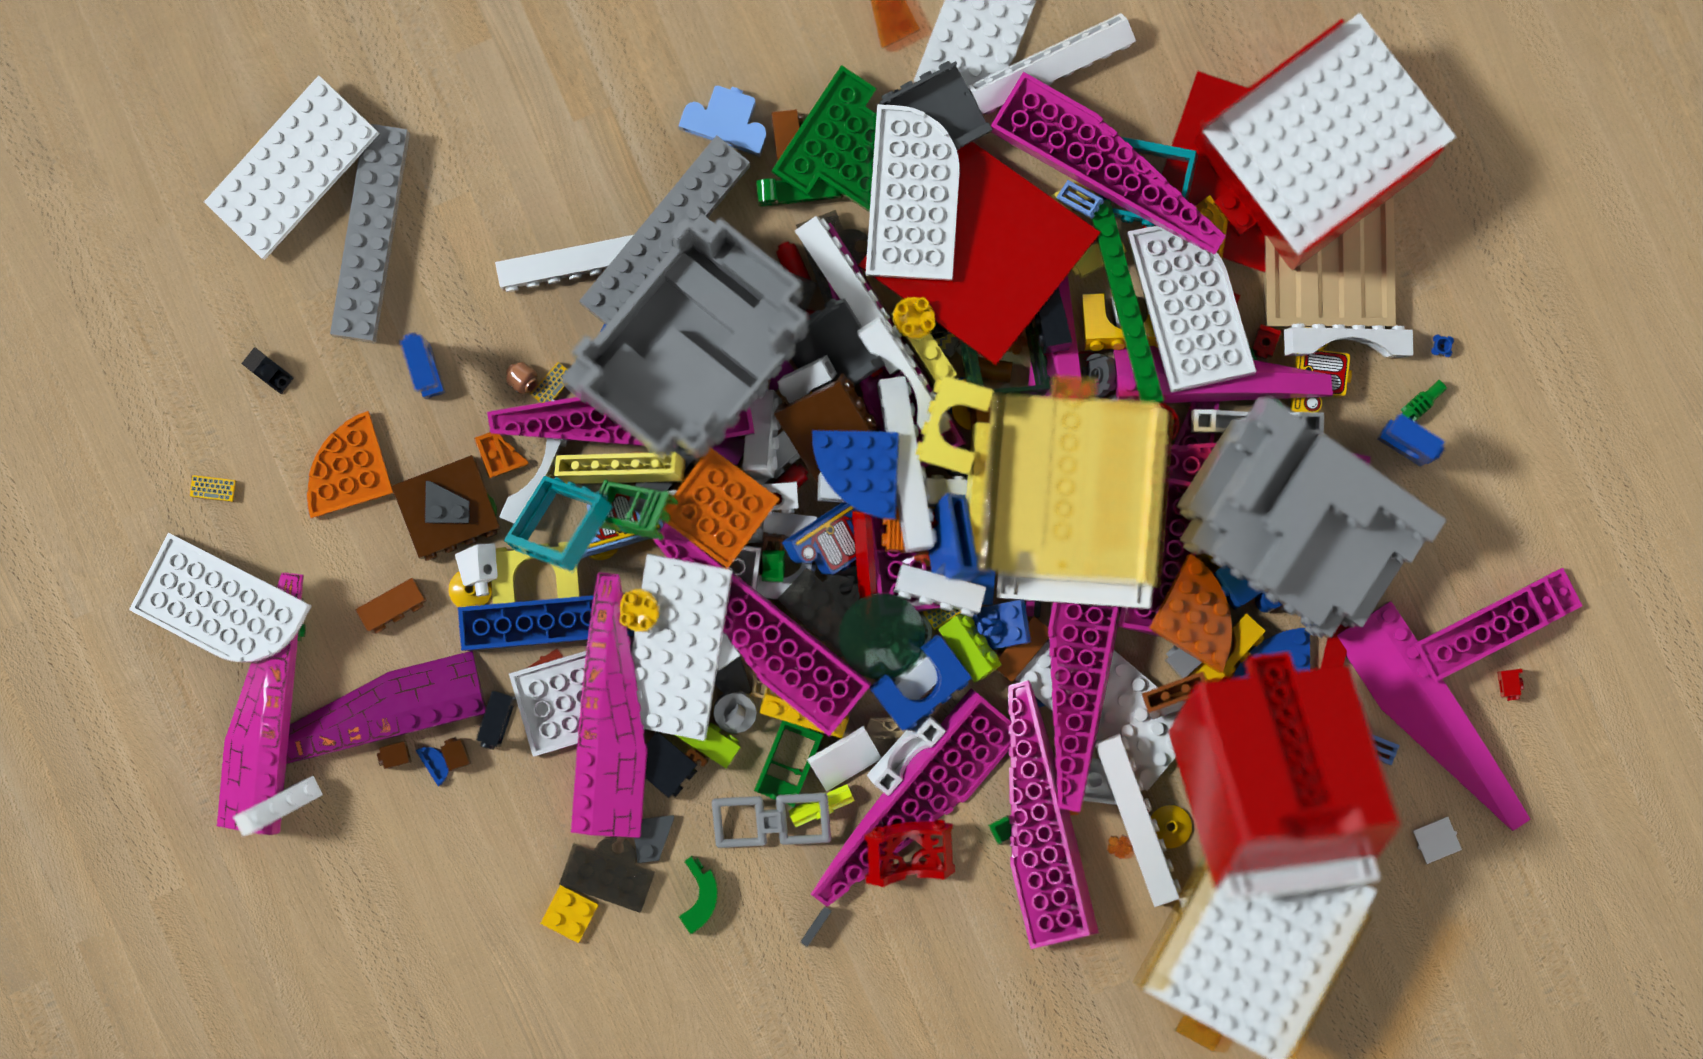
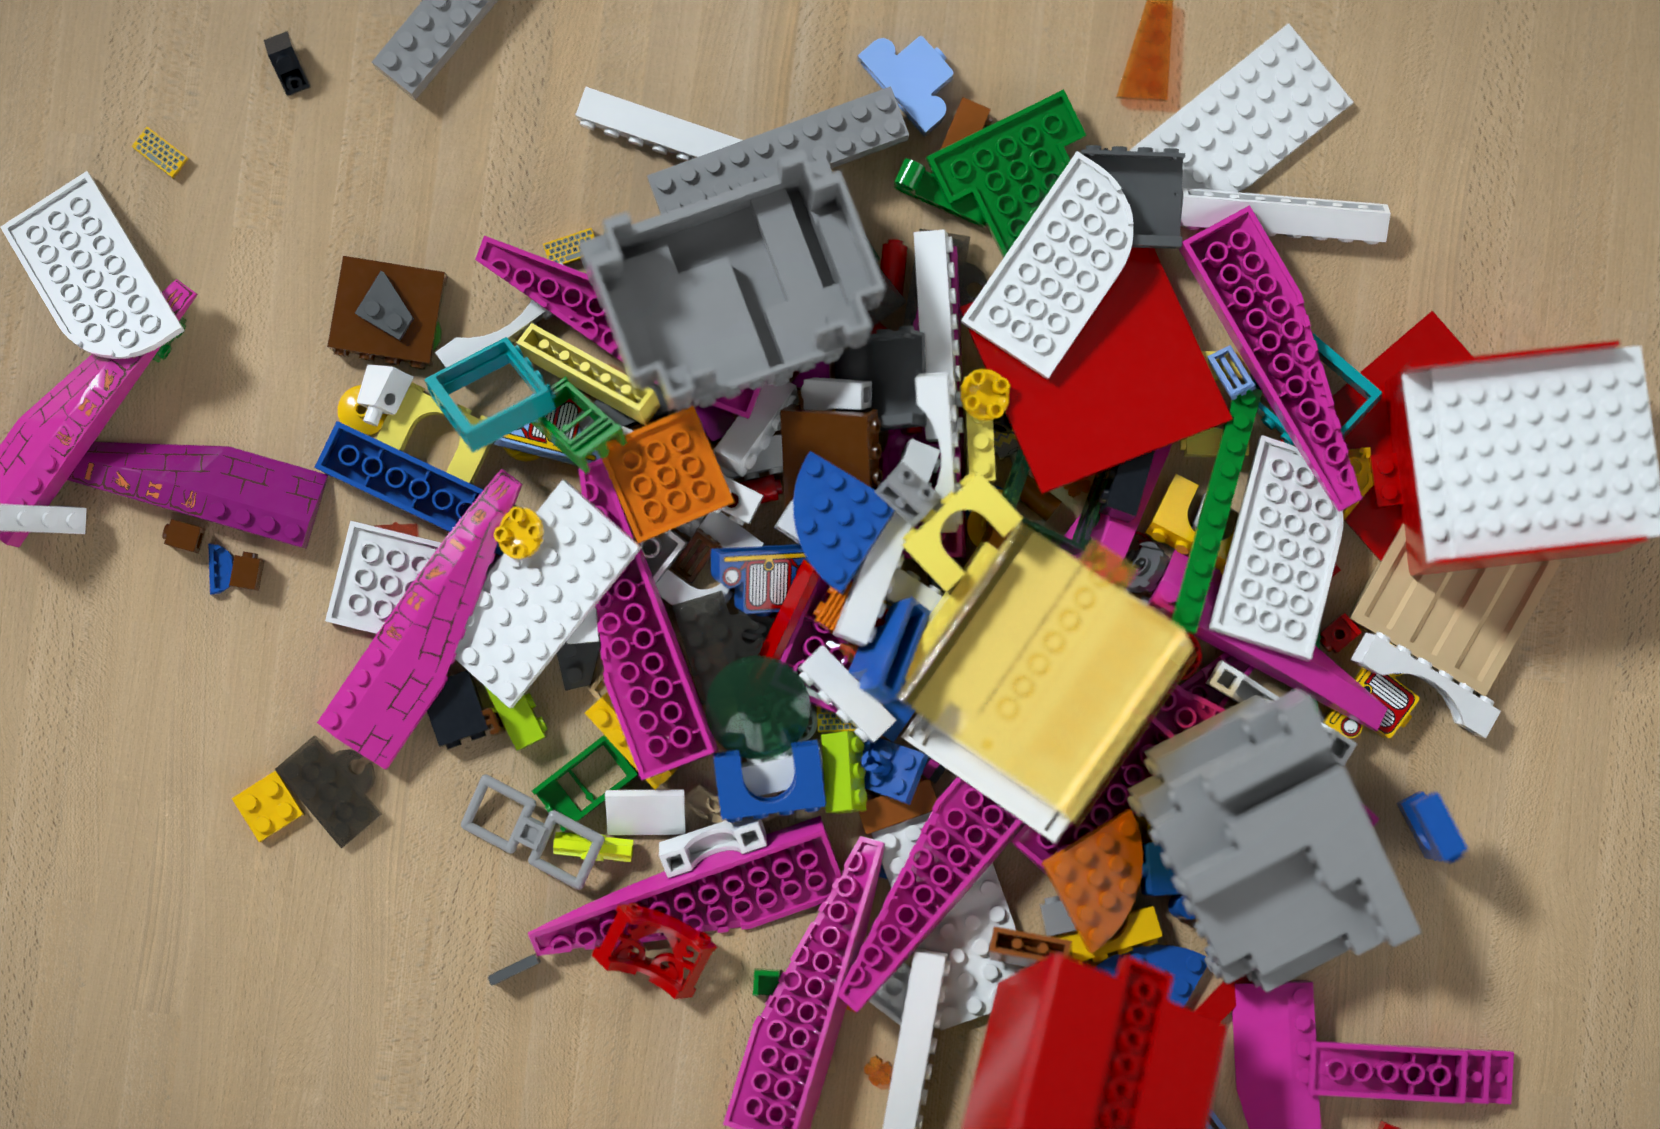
camera: 30 degrees right, 0 degrees up
(348, 469) = (309, 212): orange plate -> none
(391, 606) = (271, 380): dark orange brick -> none
(422, 365) = (445, 149): blue arch -> none
(495, 720) = (308, 560): black window -> none
(498, 455) = (472, 288): orange wing -> none
(521, 378) = (543, 222): nougat head -> none
(653, 838) = (399, 778): dark grey wing -> none
(708, 894) = (413, 879): green arch -> none
(735, 711) = (560, 697): light grey tile -> none
(773, 565) = (689, 568): green panel -> none
(901, 420) = (907, 494): none -> light grey brick
(1181, 820) = (959, 1081): yellow dish -> none
(1423, 401) = (1468, 792): green hinge -> none
(1447, 341) = (1529, 745): blue plate -> none

